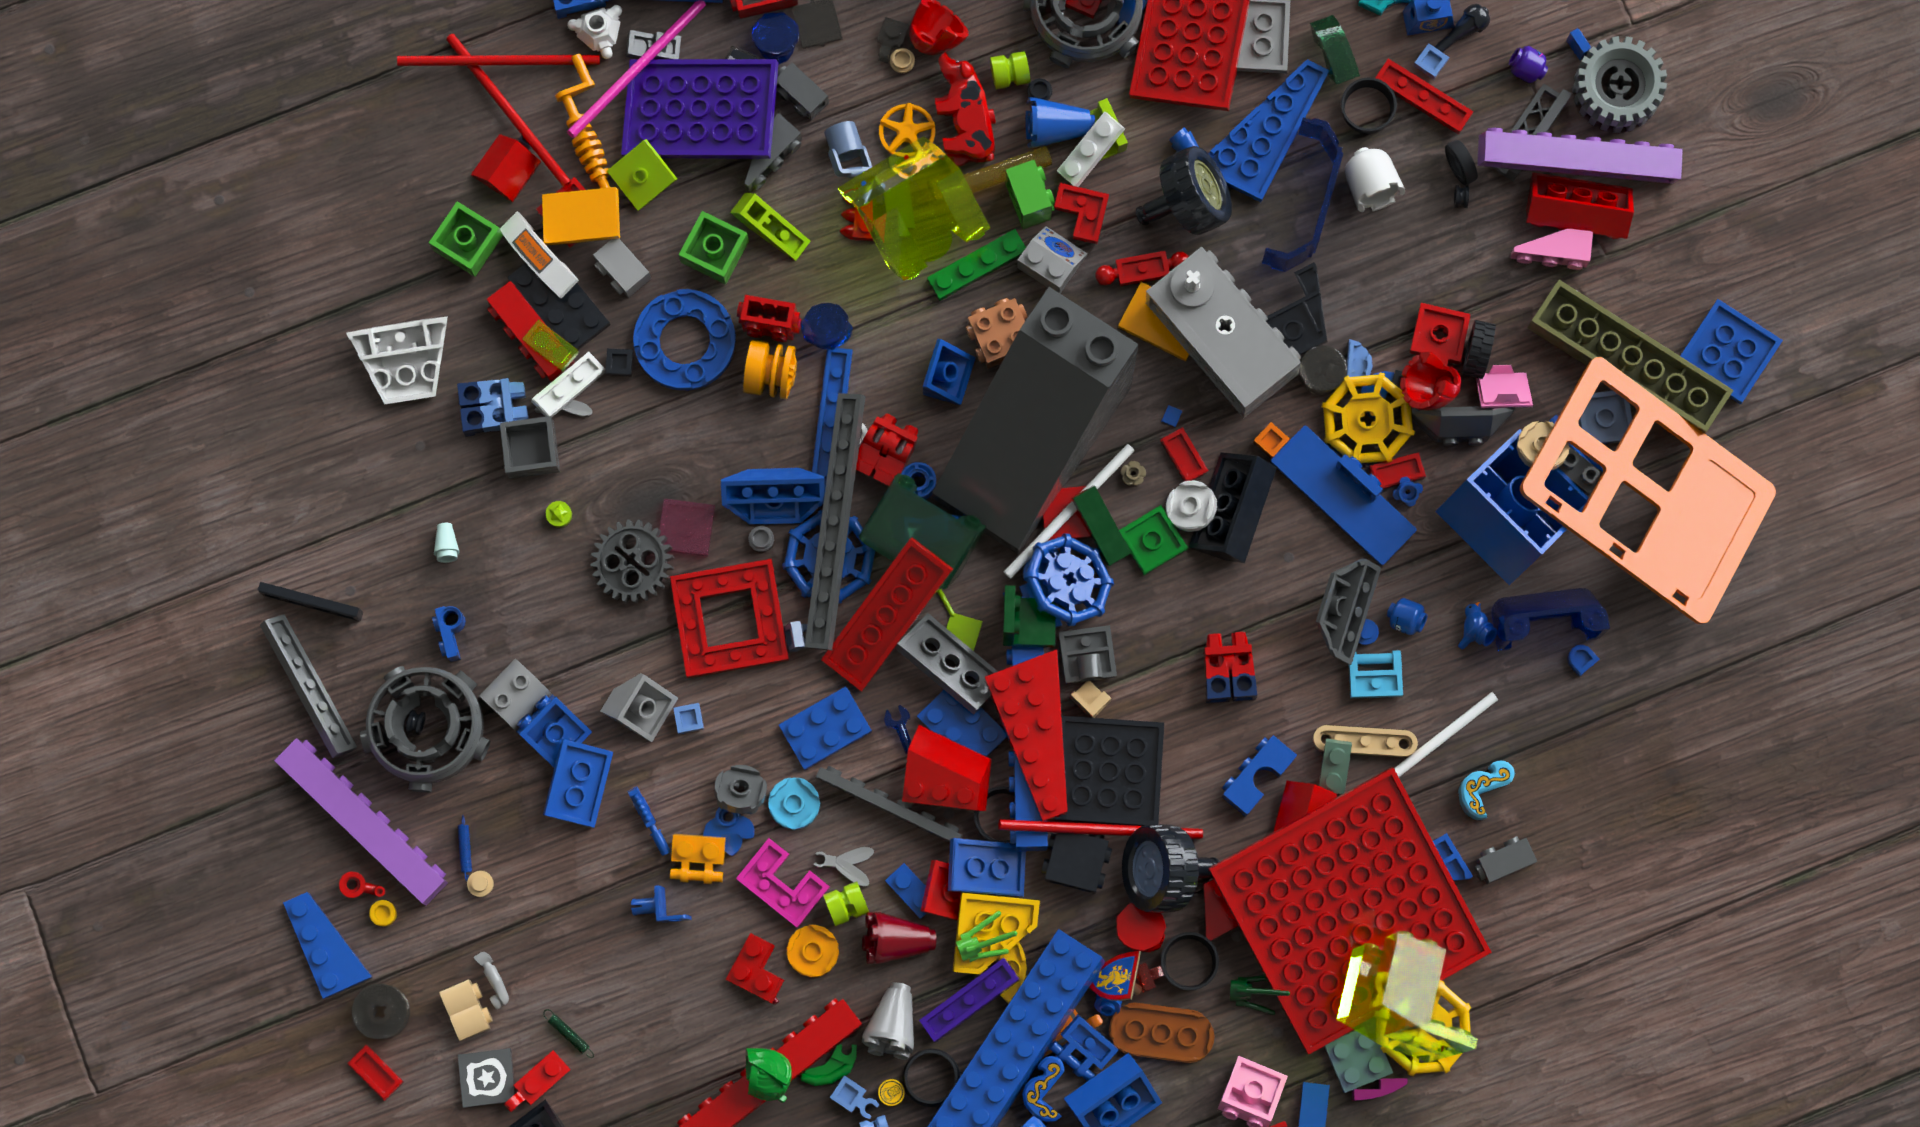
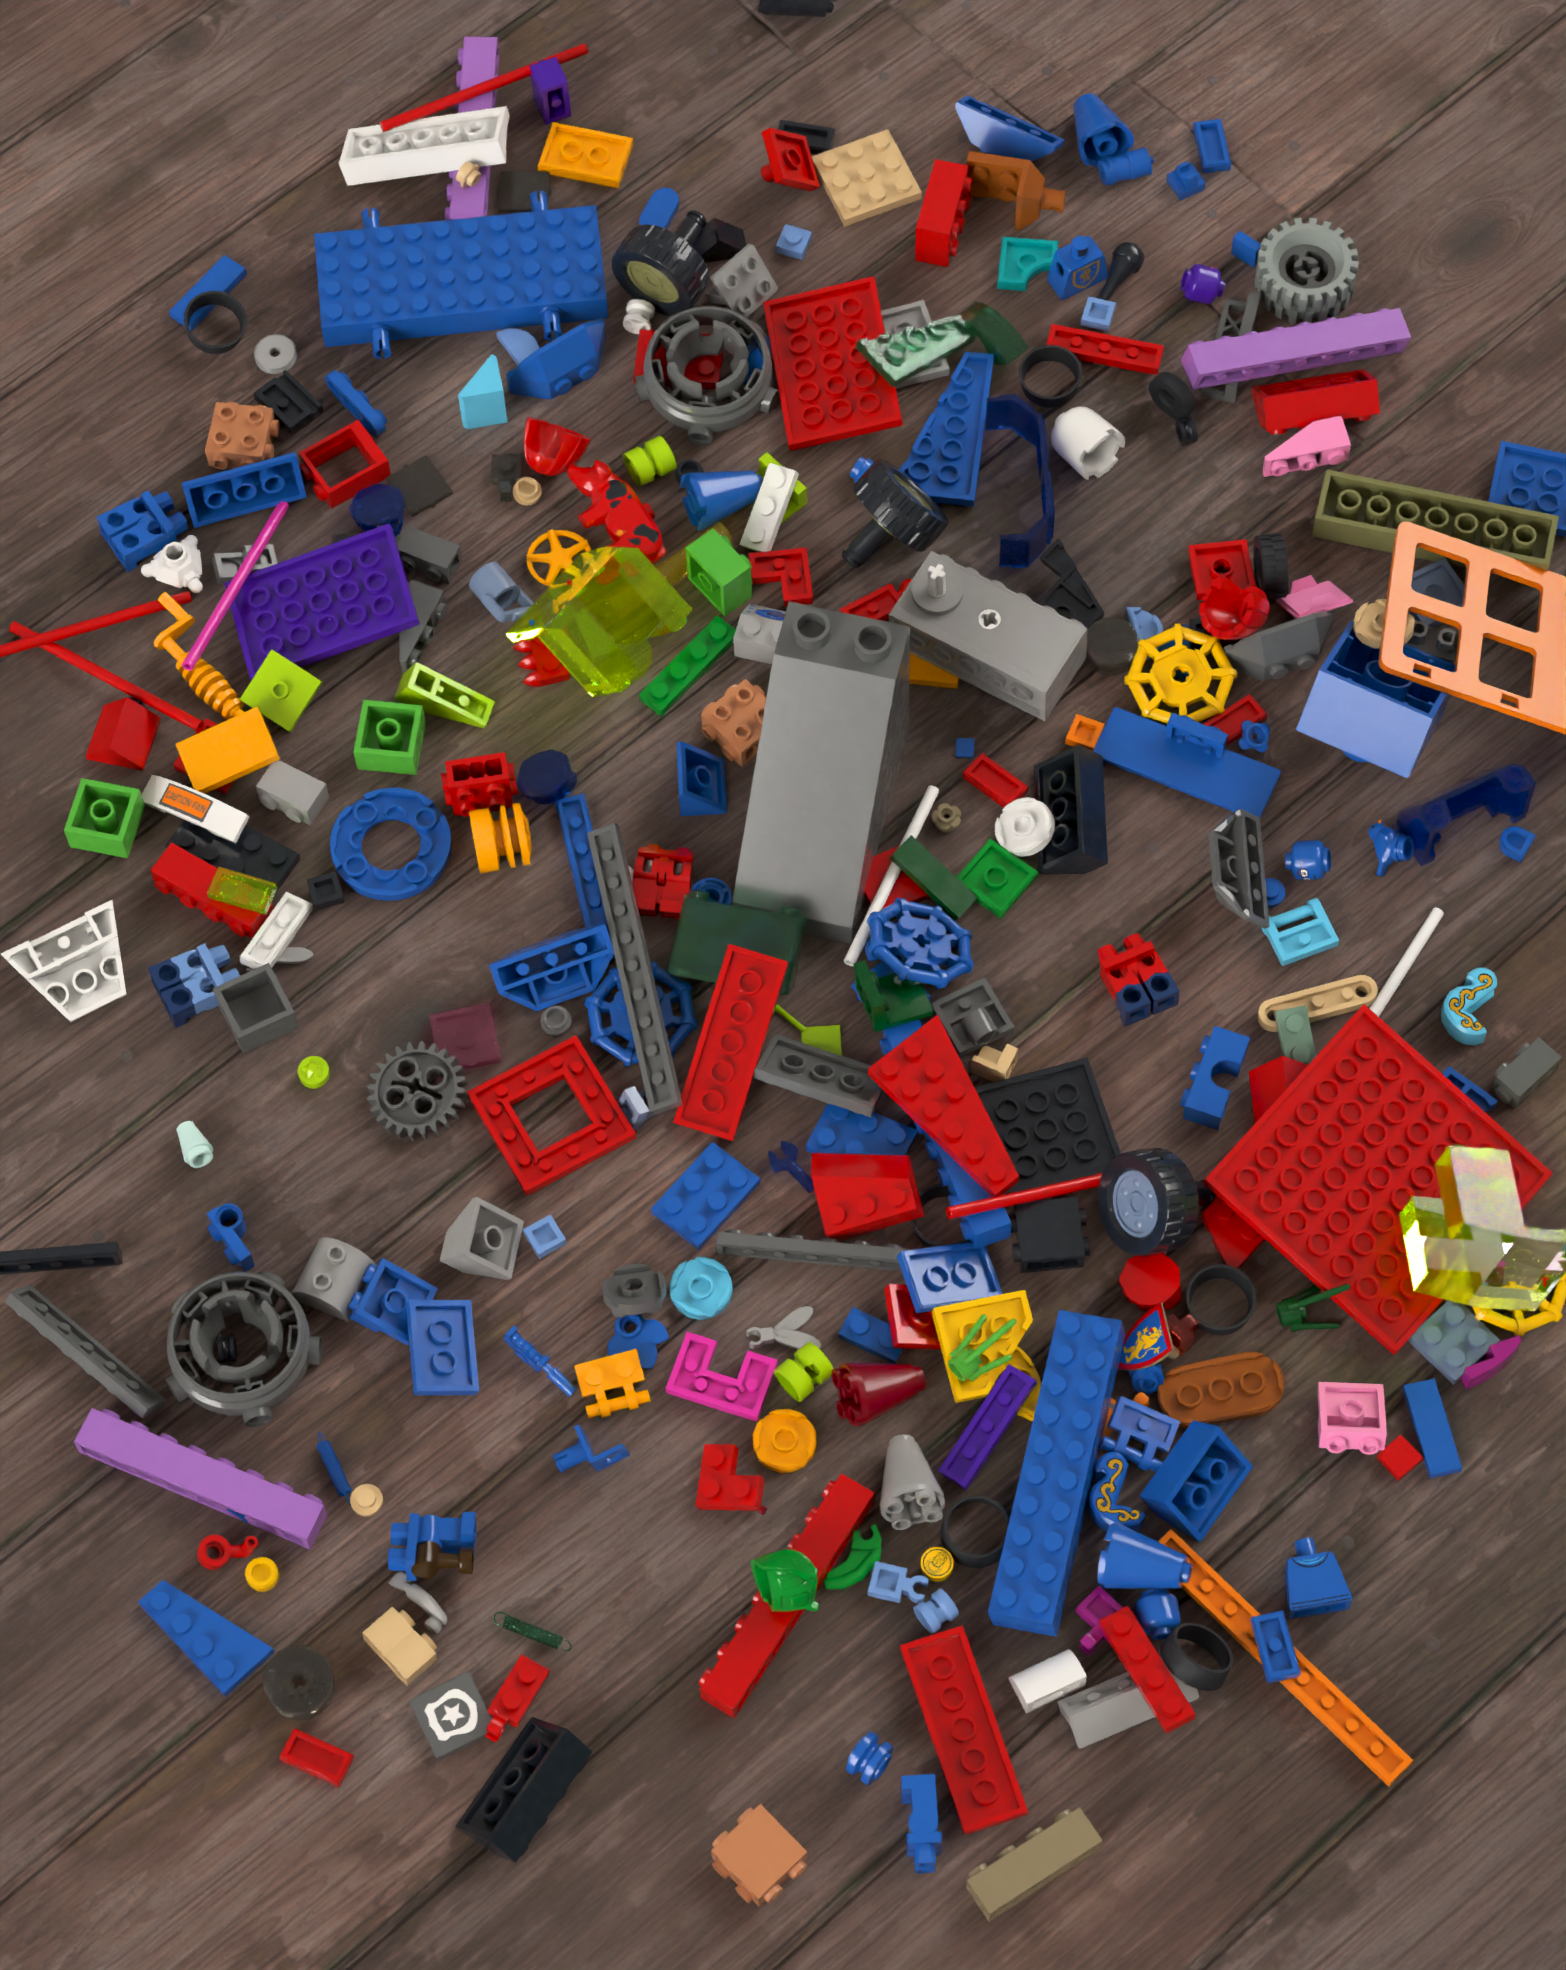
camera: 20 degrees left, 15 degrees down
(512, 936) = (433, 1545): none -> blue hips
(1262, 47) = (915, 349): none -> clear green wing

